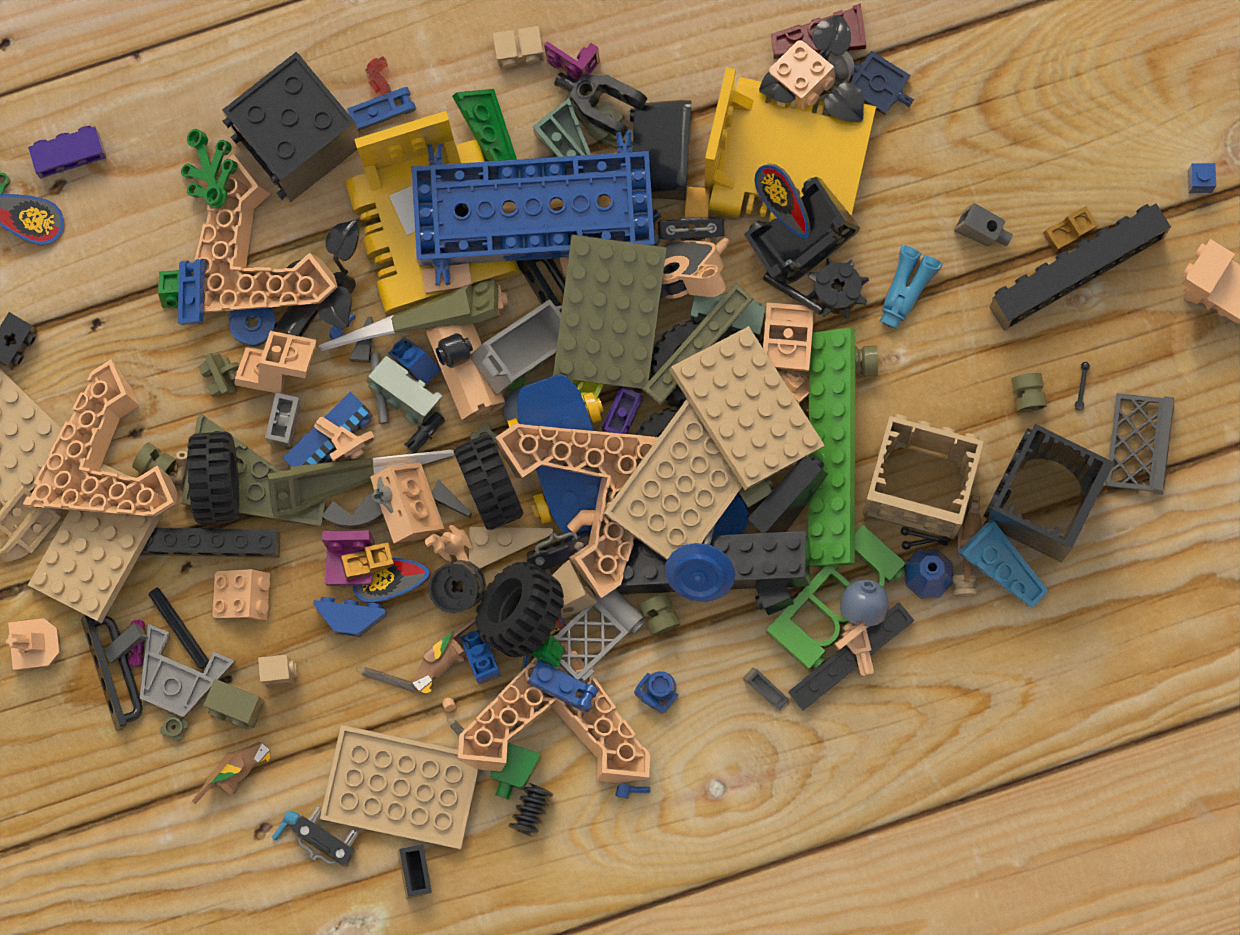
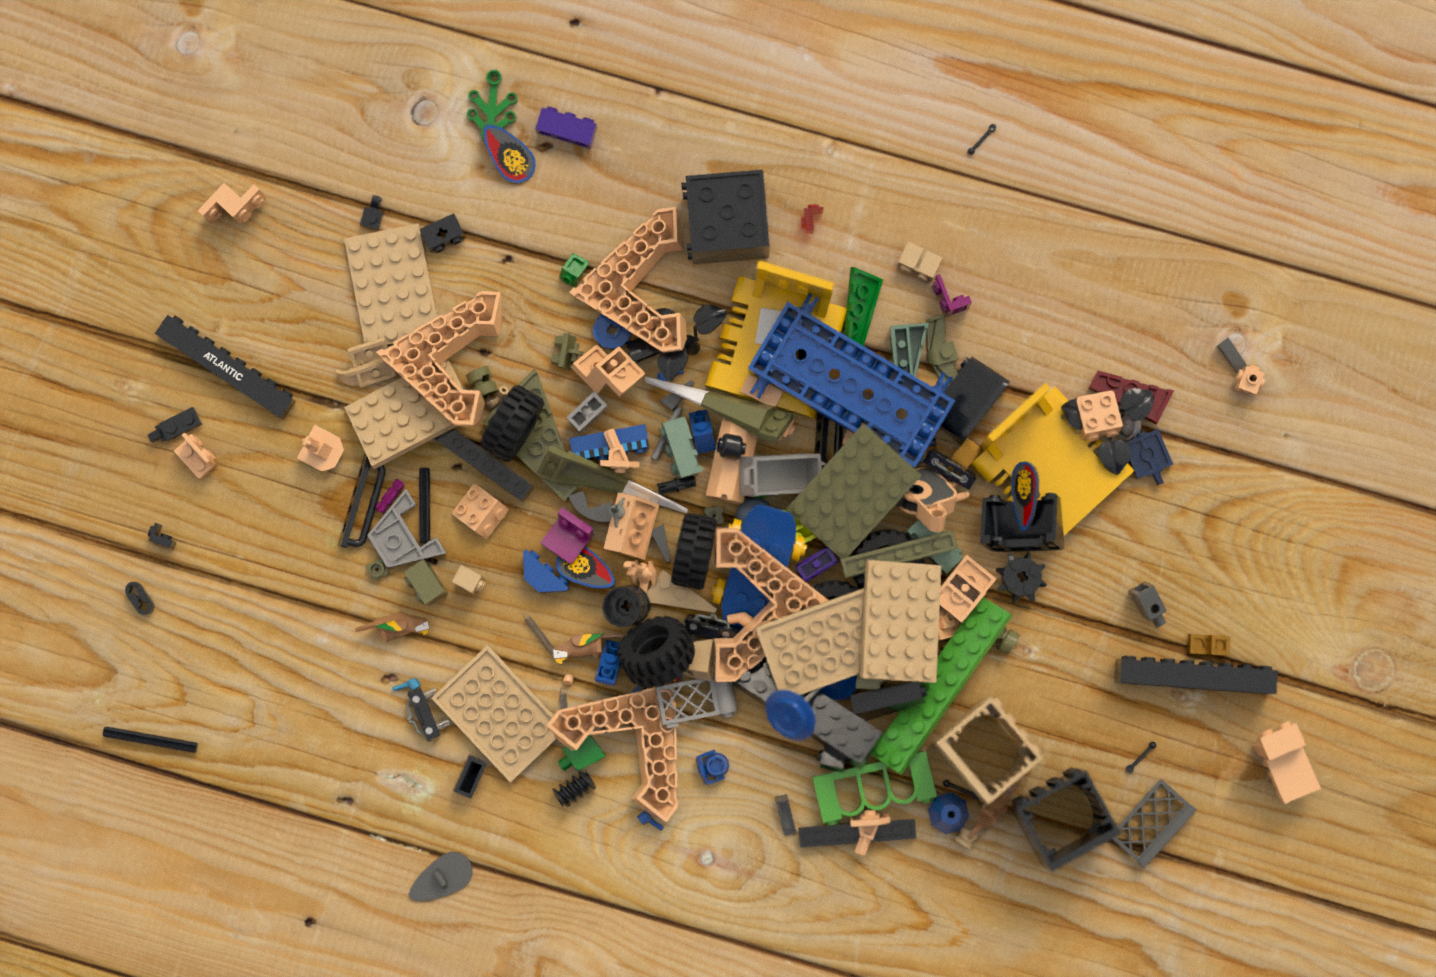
camera: 35 degrees right, 5 degrees up
(125, 642) = (386, 491): dark grey piece -> none
(191, 292) = (584, 283): blue plate -> none
(216, 193) = (645, 227): green plant -> none
(367, 562) = (578, 548): pearl gold slope -> none
(381, 108) = (797, 241): blue plate -> none
(549, 652) = (657, 695): green brick -> none
(562, 686) = (649, 722): blue plate -> none
(598, 85) = (954, 327): black piece -> none
(659, 614) = (748, 717): olive wheel -> none
(794, 294) = (989, 562): black bar -> none
(864, 602) = (889, 807): sand blue cylinder -> none
(901, 298) = (1059, 612): dark azure piece -> none
(943, 540) = (973, 797): black hinge -> none
(1000, 561) = (1001, 841): dark azure wing -> none
(1029, 392) = (1101, 738): olive wheel -> none
(1201, 178) = (1322, 672): blue brick -> none

